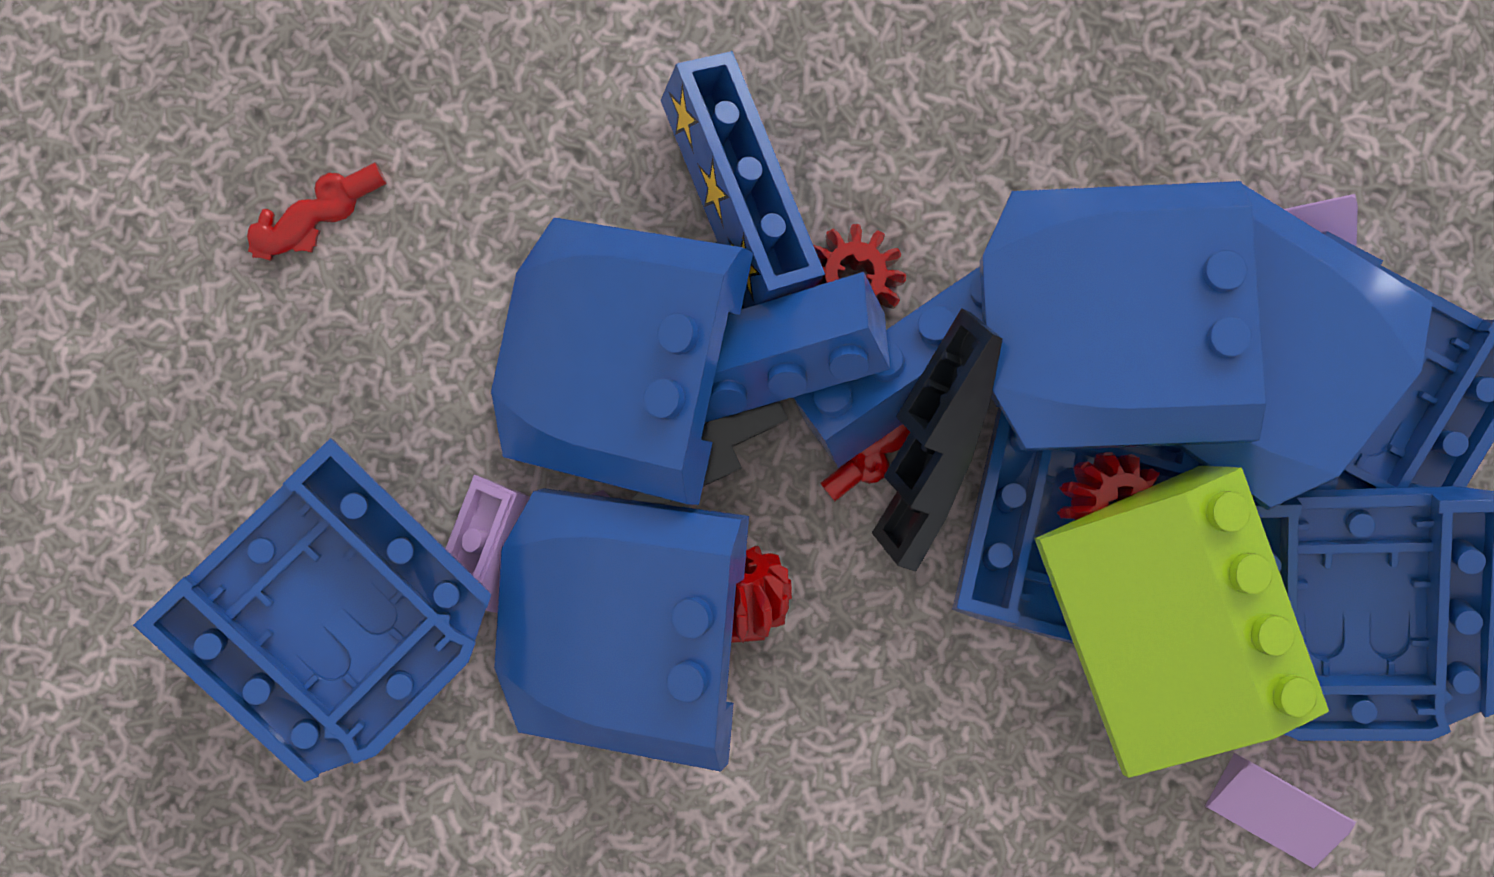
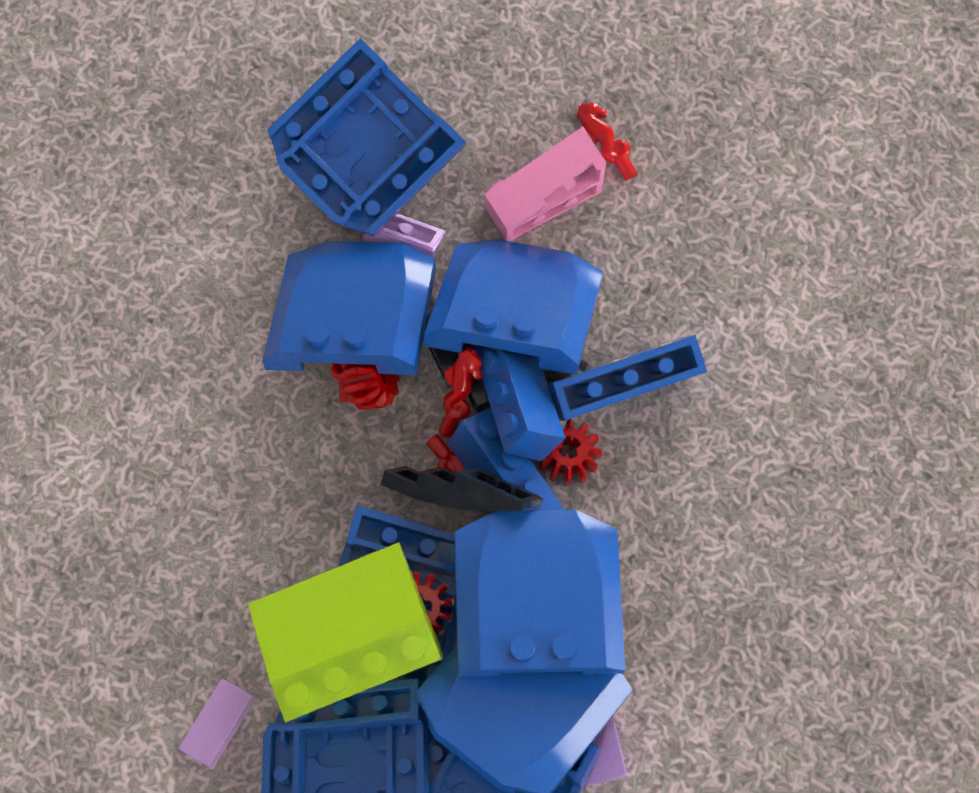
camera: 90 degrees right, 15 degrees down
(401, 306) = (547, 186): none -> bright pink wedge
(749, 443) = (460, 378): none -> red animal

